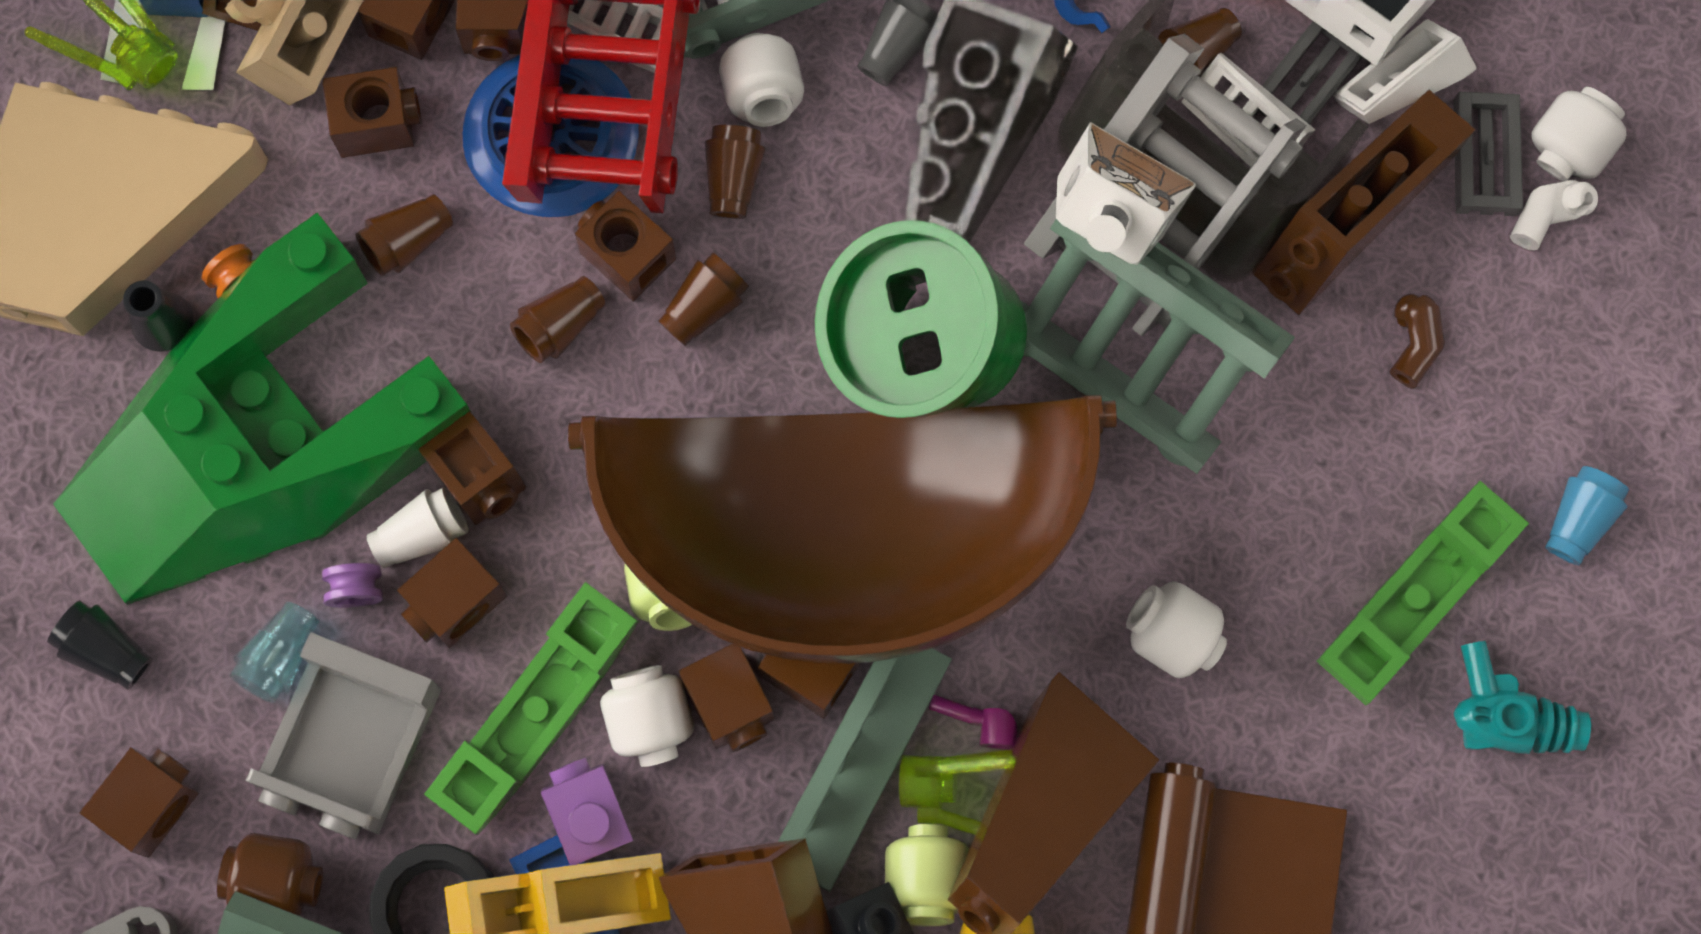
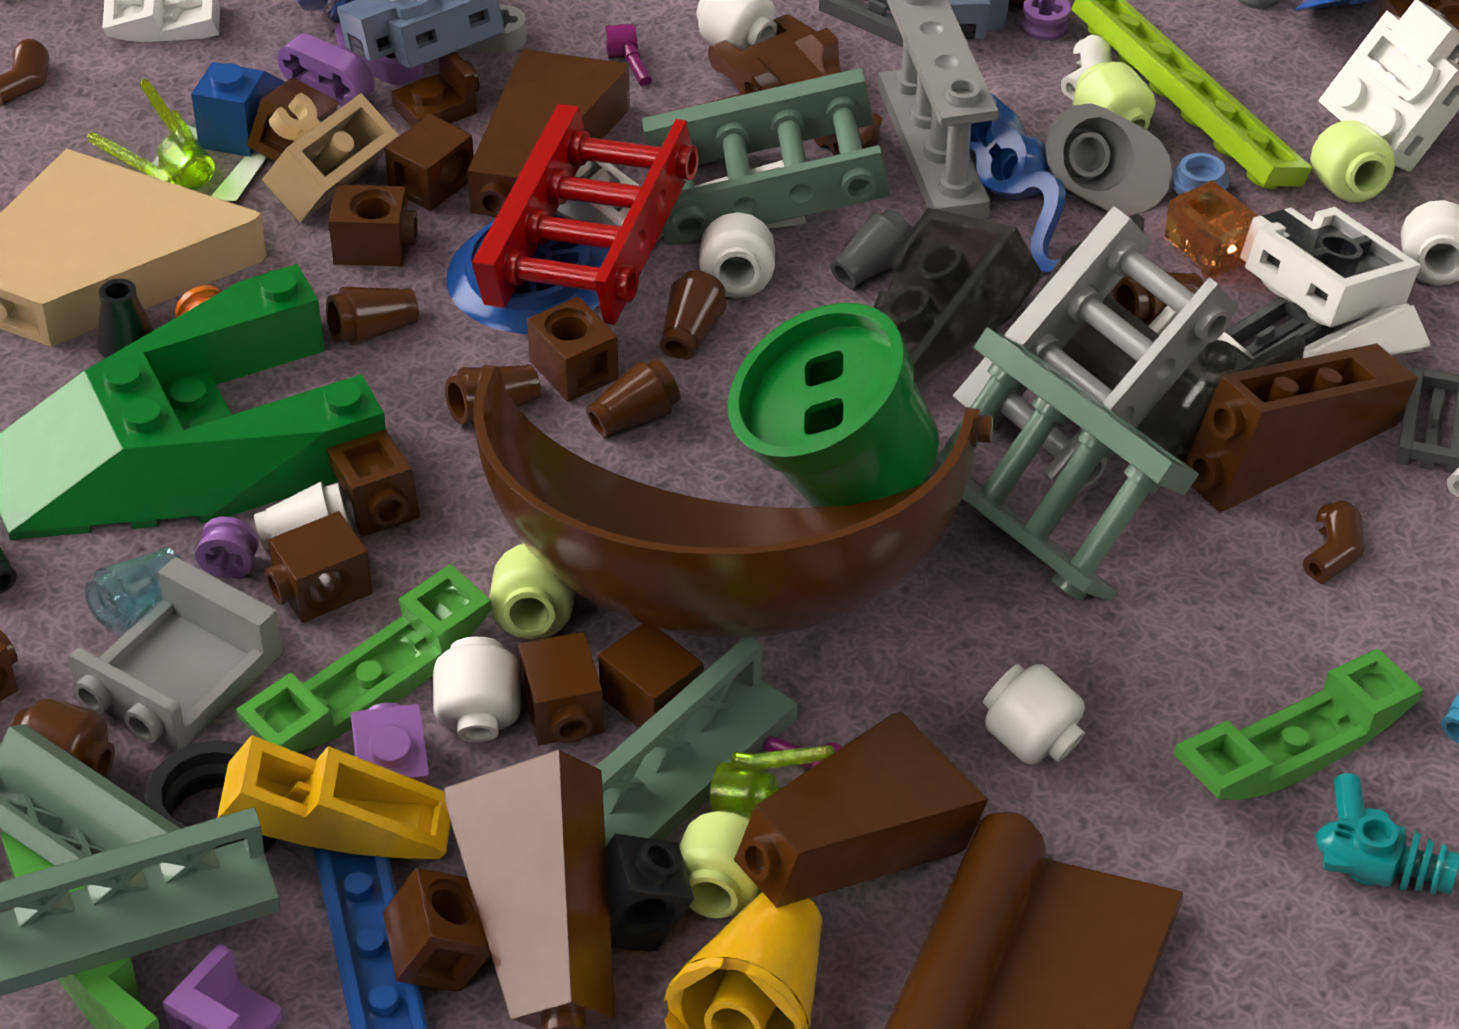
camera: 15 degrees right, 30 degrees down
(1118, 195) = (1045, 326): white torso -> none

